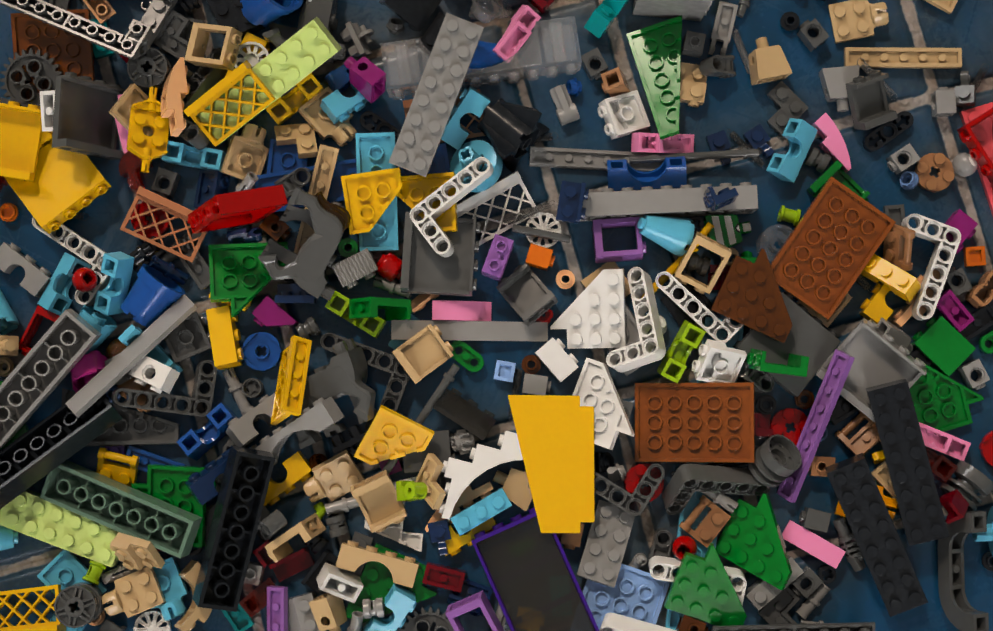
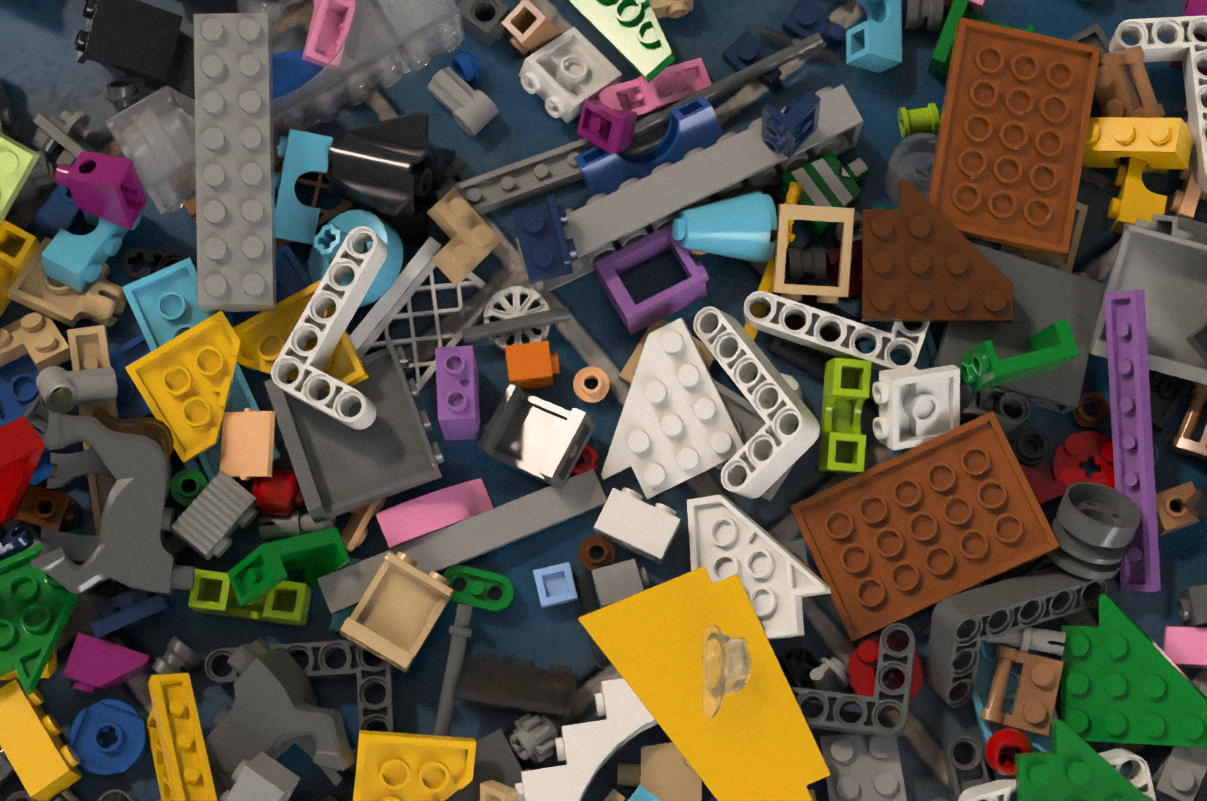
camera: 25 degrees left, 10 degrees down
(307, 176) = (77, 387): none -> light grey piece
(384, 239) = (247, 443): none -> light nougat piece
(537, 177) = (469, 236): none -> tan plate
(566, 452) = (725, 667): none -> clear piece
(629, 153) = (606, 126): none -> magenta slope

